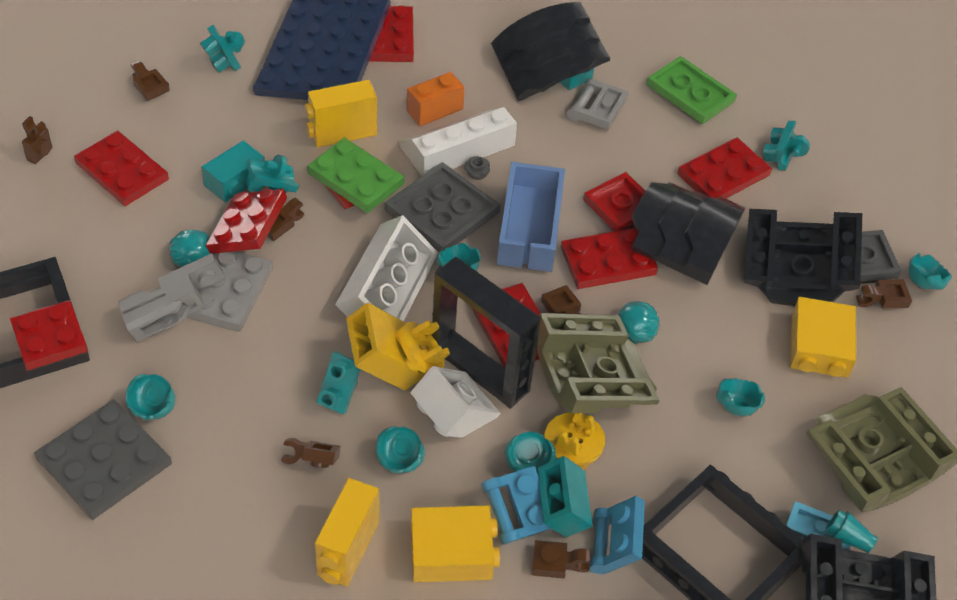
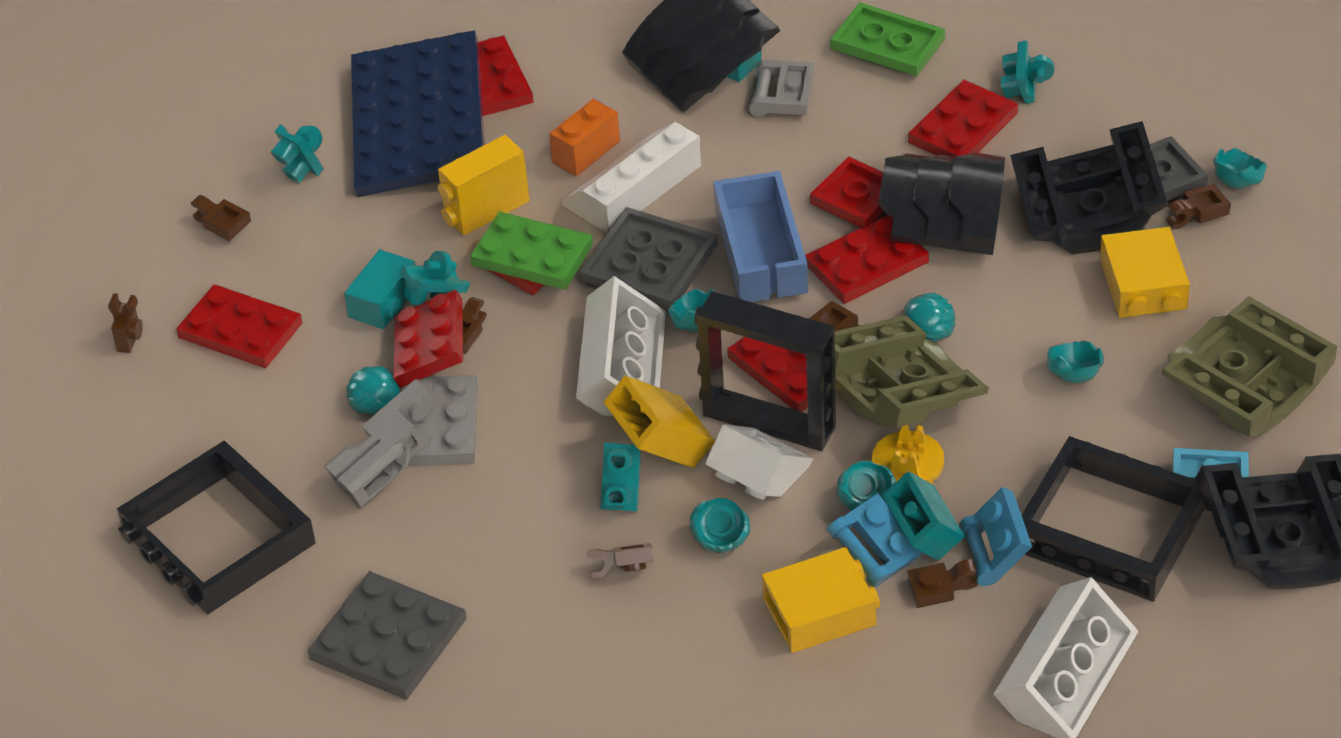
camera: 10 degrees left, 5 degrees down
(48, 335) = (266, 522): red plate -> none
(150, 396) = (411, 555): teal hair -> none
(347, 532) = (703, 618): yellow brick -> none
(420, 346) = (694, 406): yellow plate -> none
(477, 167) = (669, 203): dark grey plate -> none
(851, 531) = (1247, 456): teal cone -> none

